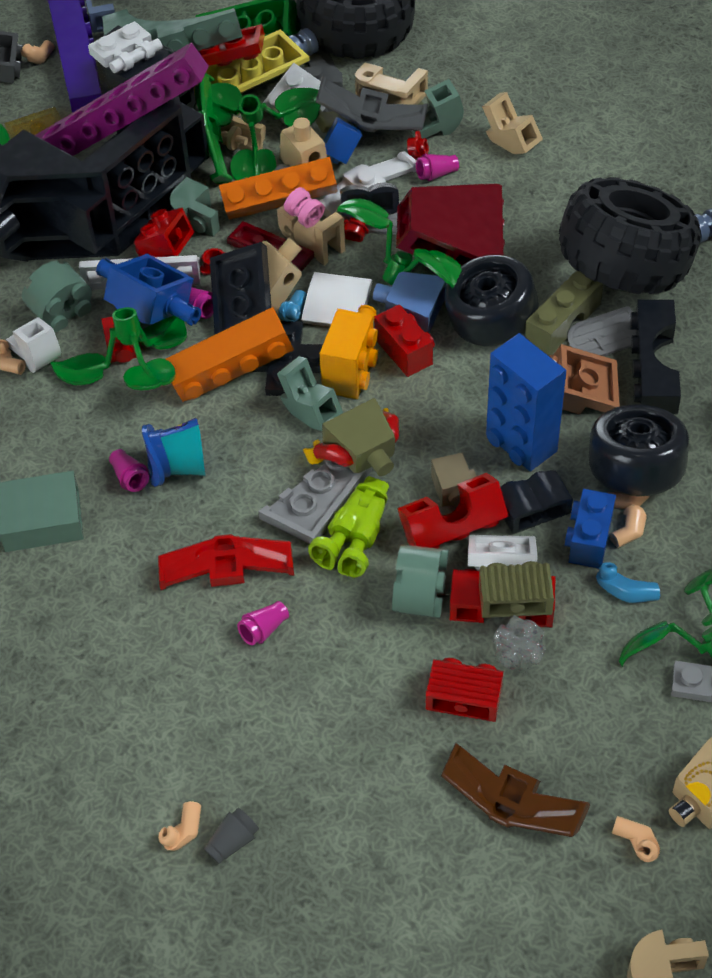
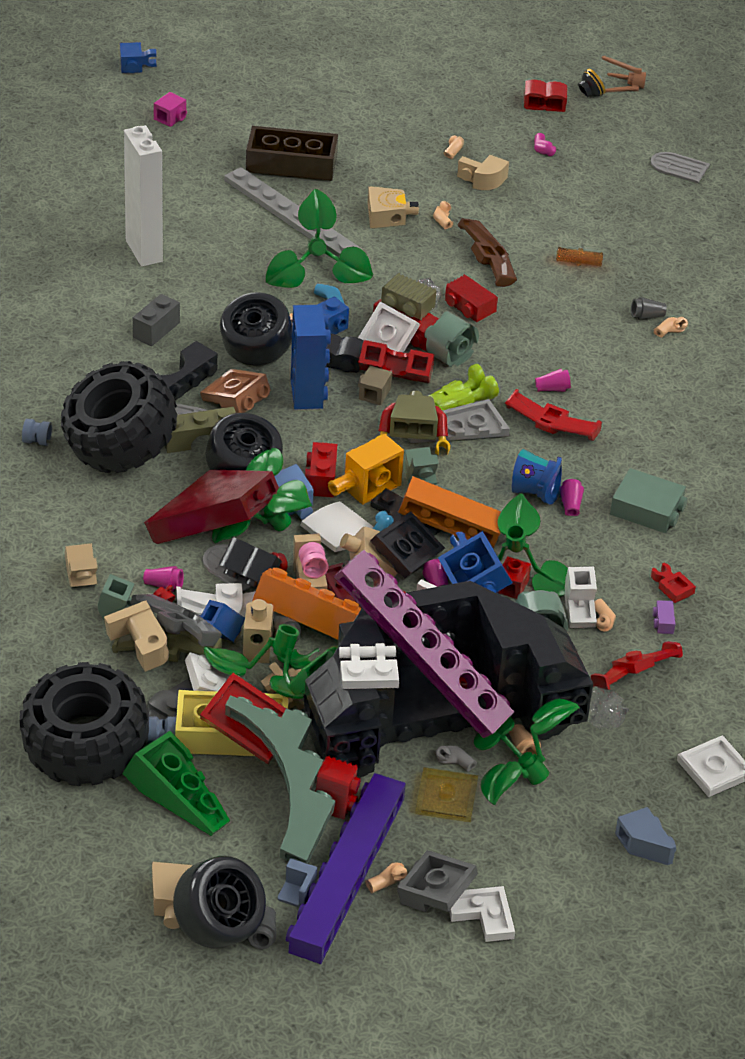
camera: 150 degrees left, 10 degrees down
(393, 881) = (579, 256): none -> clear orange pin

